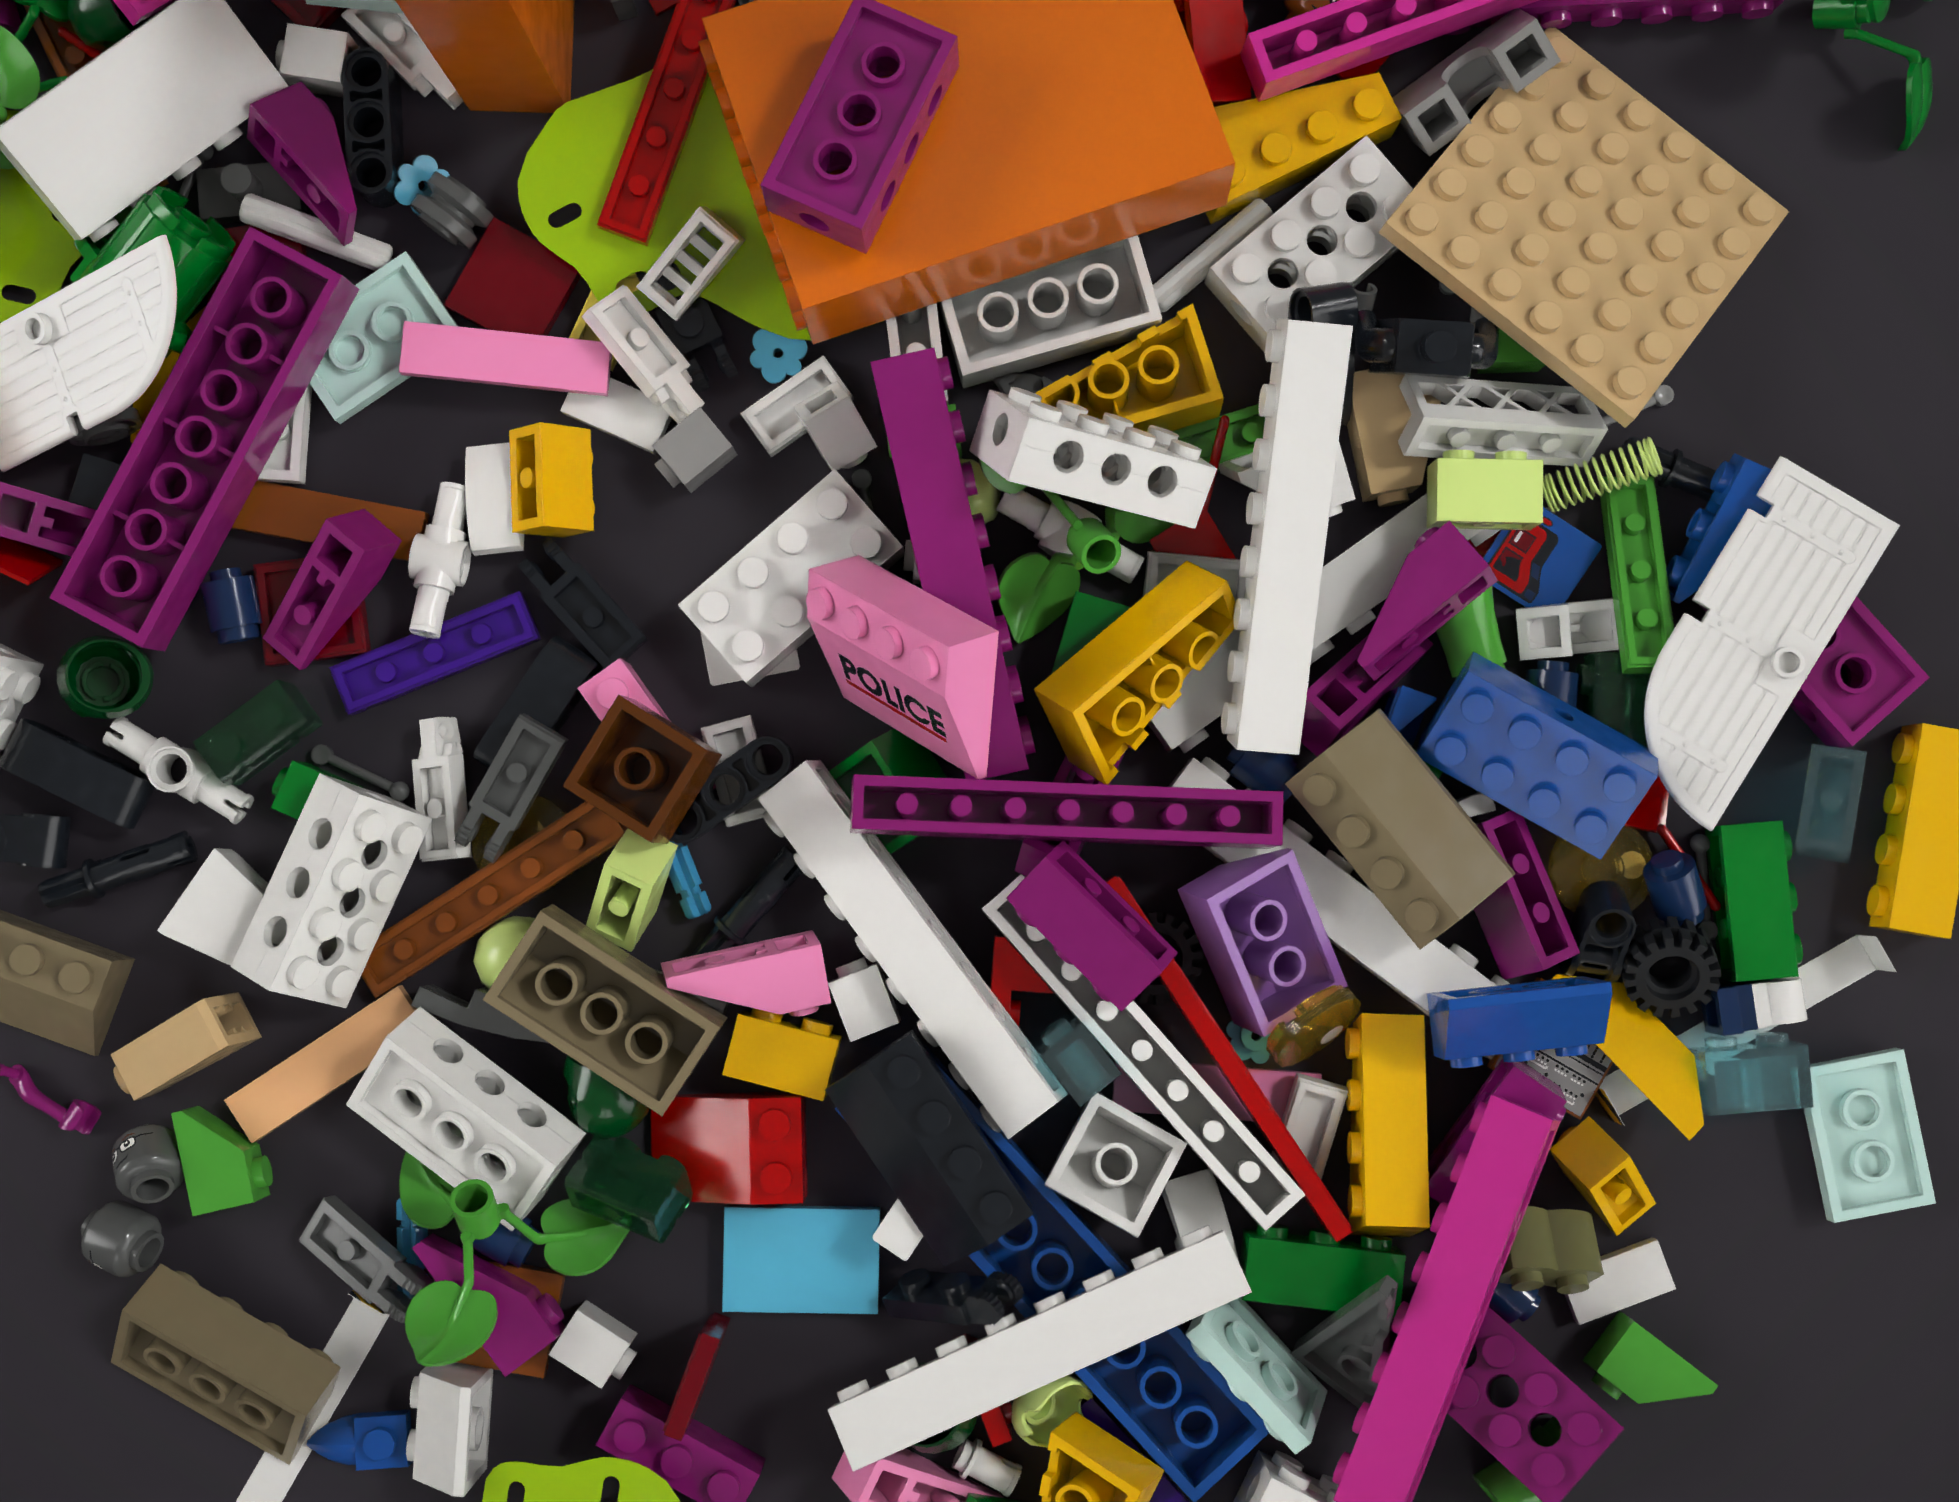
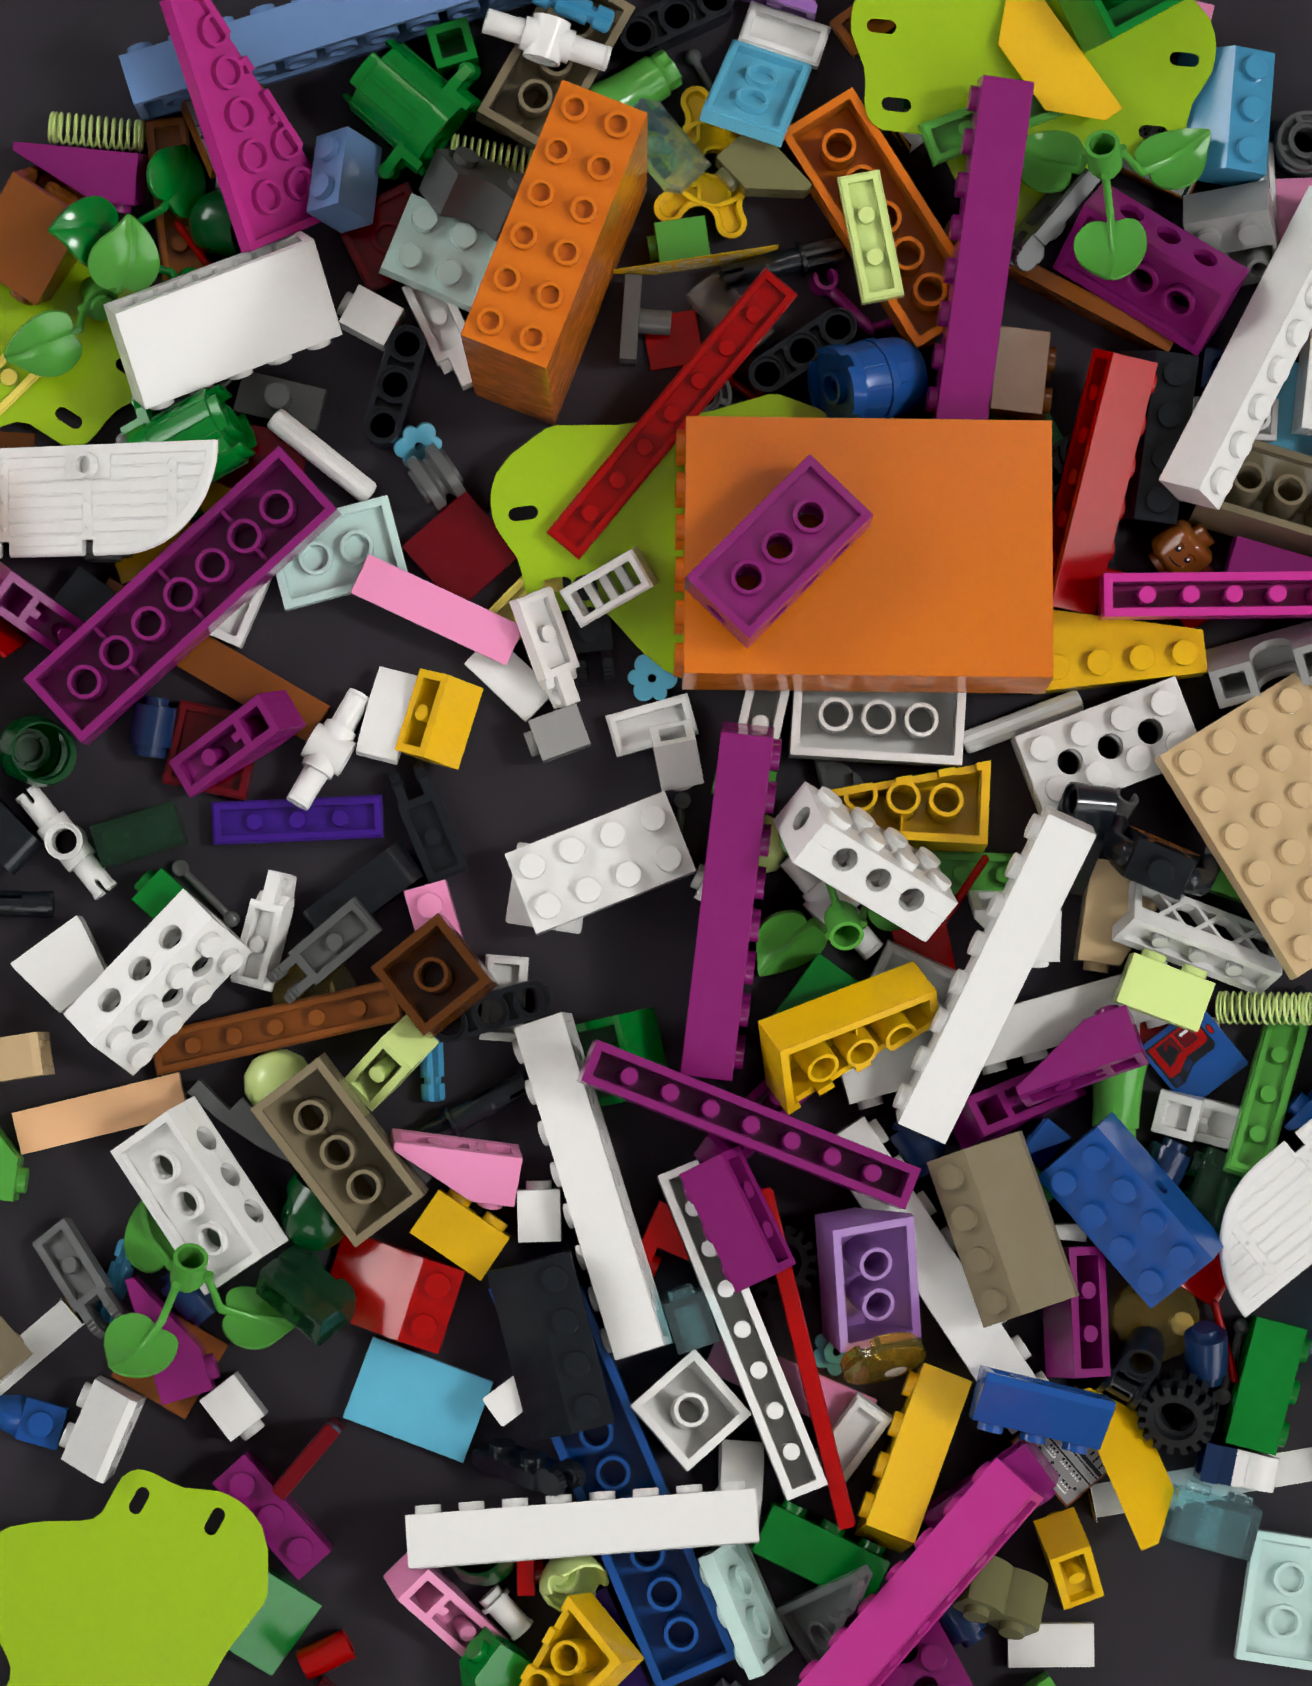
camera: 15 degrees right, 0 degrees up
(304, 147) = (337, 387): magenta slope -> none
(907, 658) = (668, 962): bright pink slope -> none

